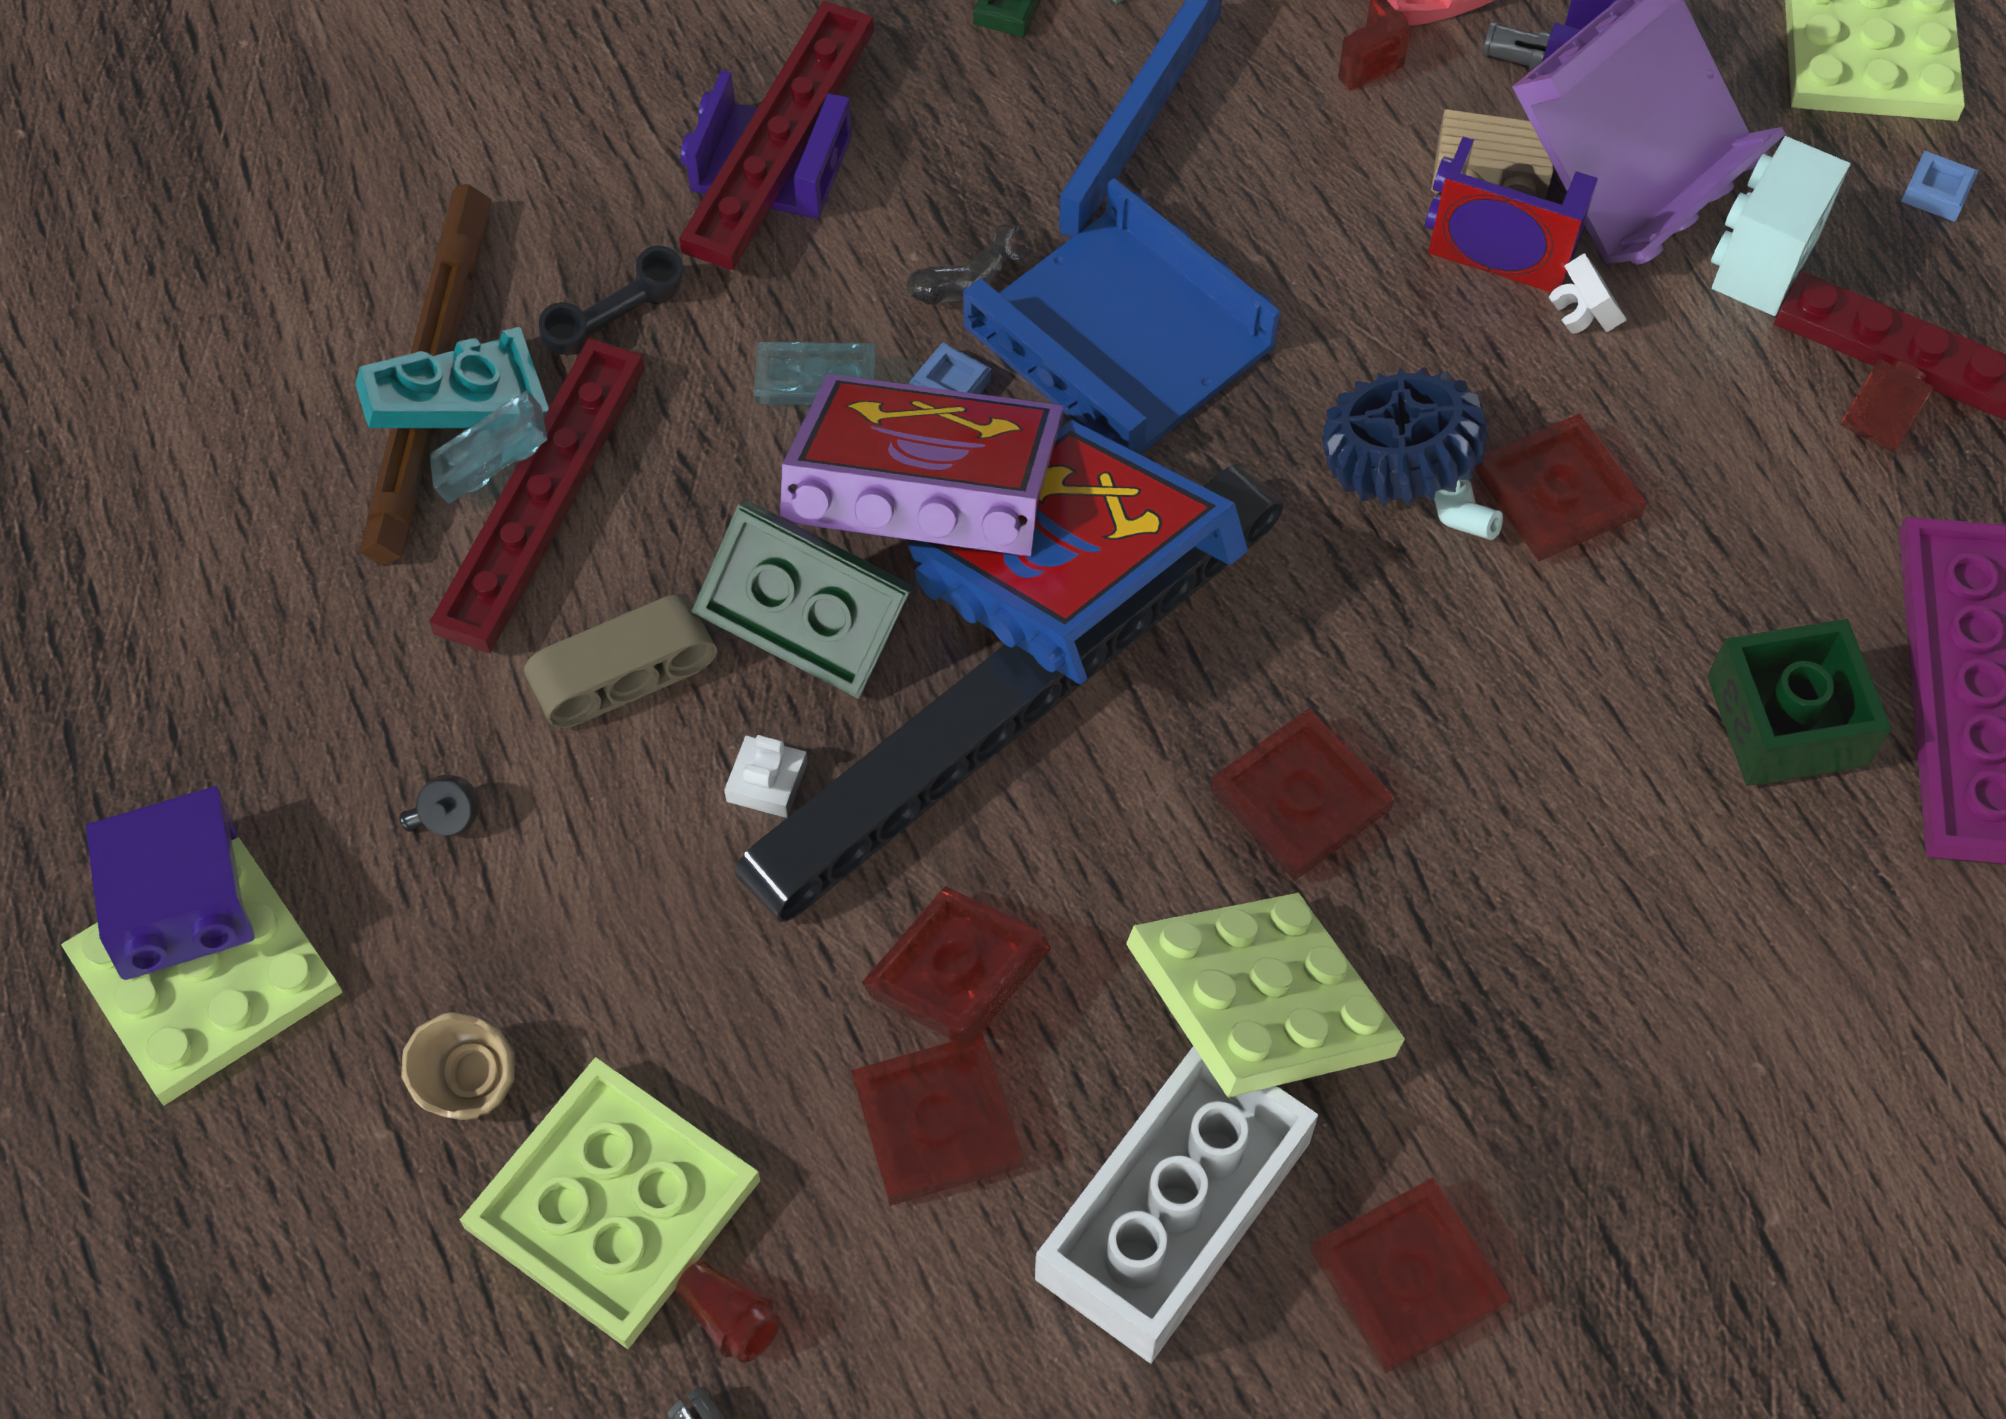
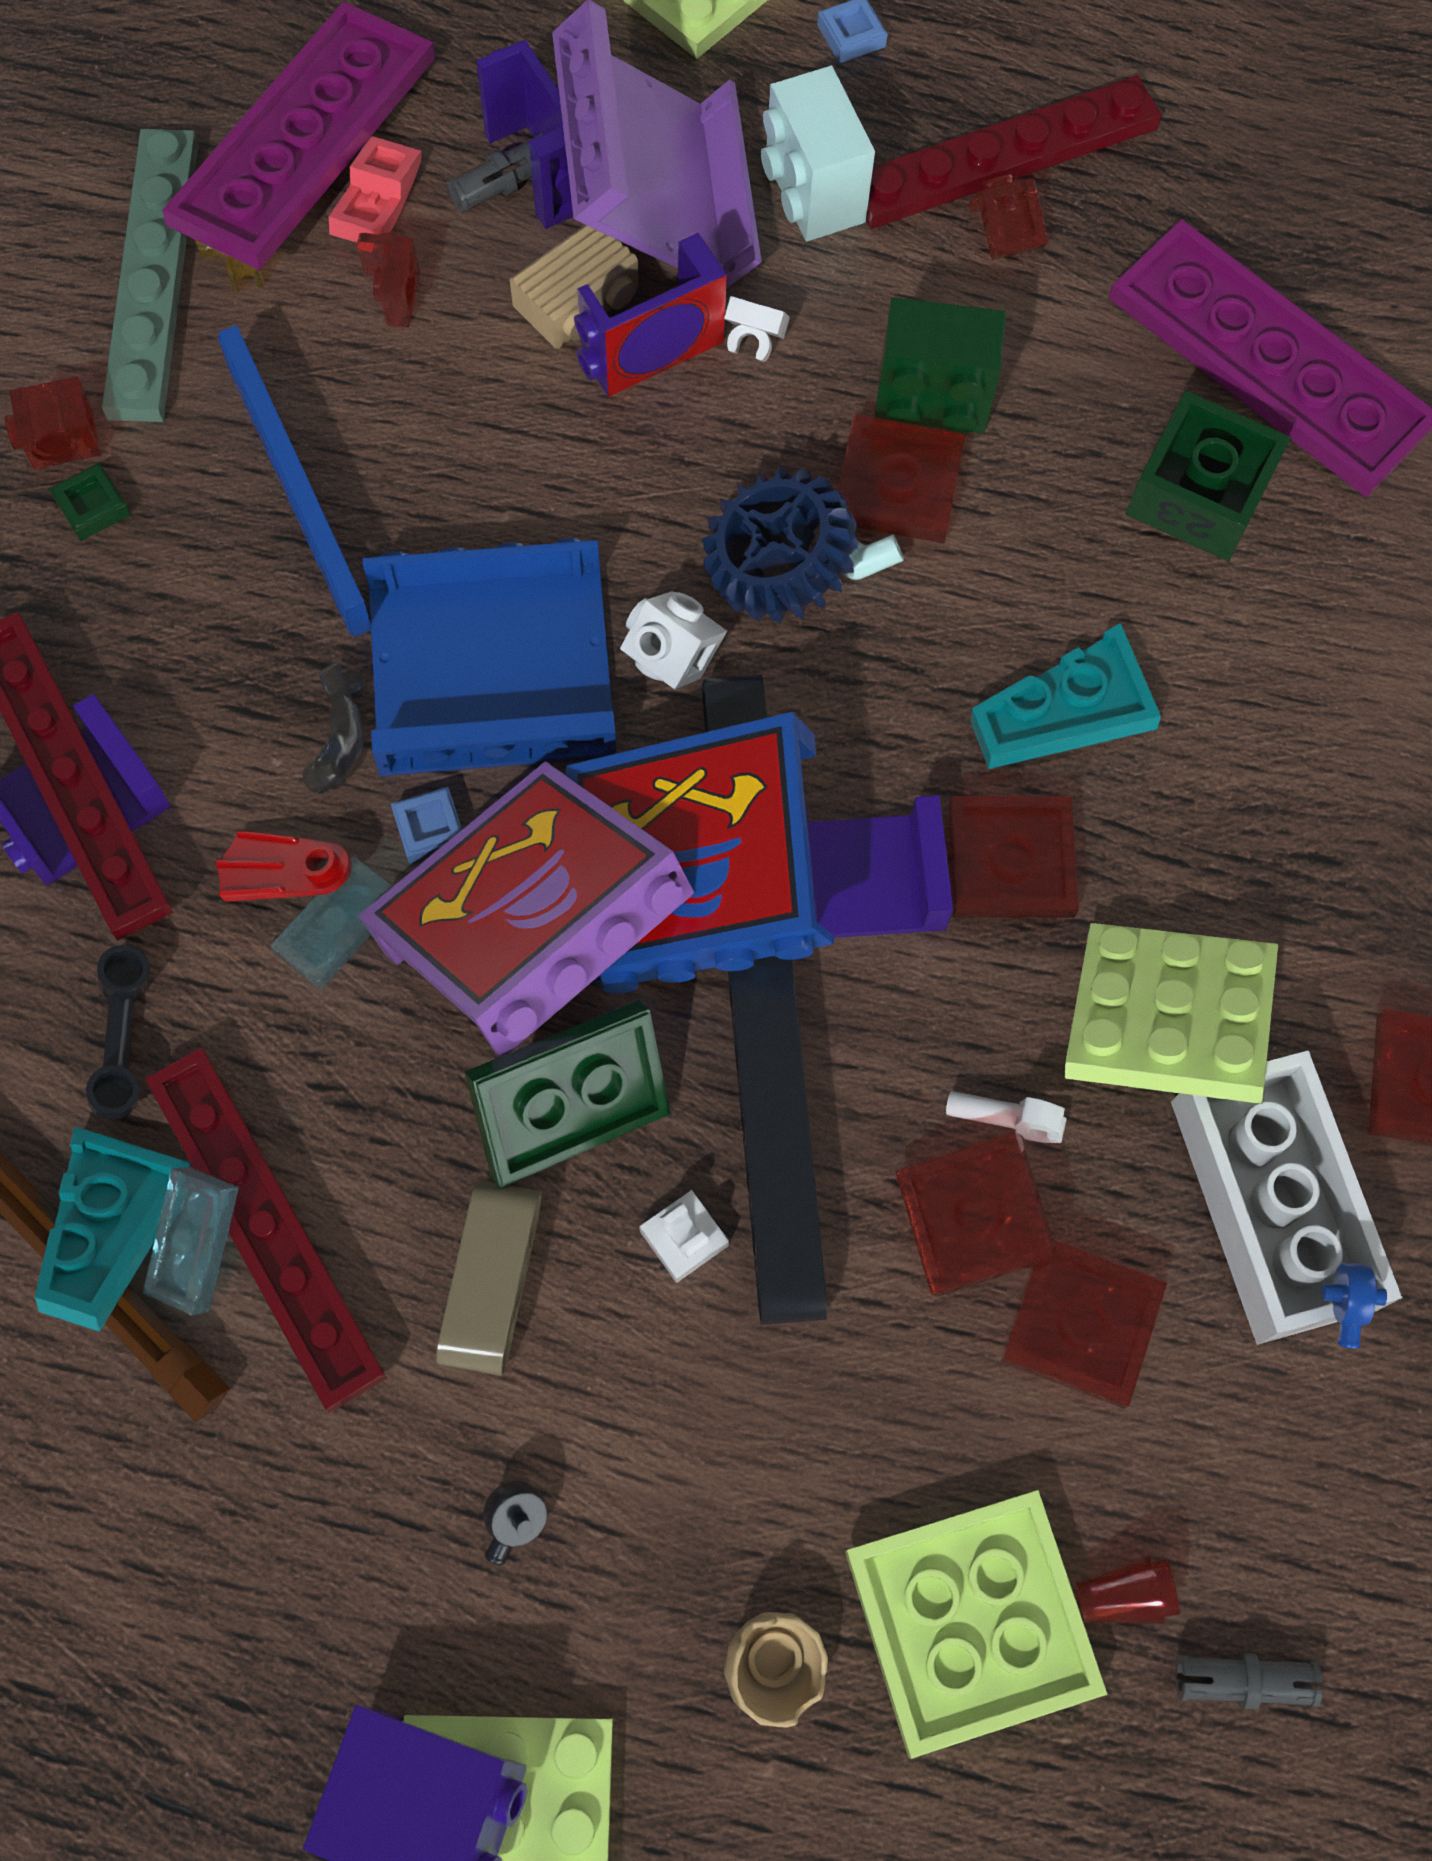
camera: 55 degrees left, 10 degrees up
(827, 309) = (280, 867): none -> red piece
(1076, 948) = (1031, 1118): none -> white bar
(1109, 1286) = (1353, 1300): none -> blue piece
(1185, 696) = (881, 873): none -> dark purple panel
(1251, 422) = (672, 638): none -> white brick
(1486, 752) = (1076, 704): none -> teal wing
(1680, 434) = (940, 365): none -> dark green brick

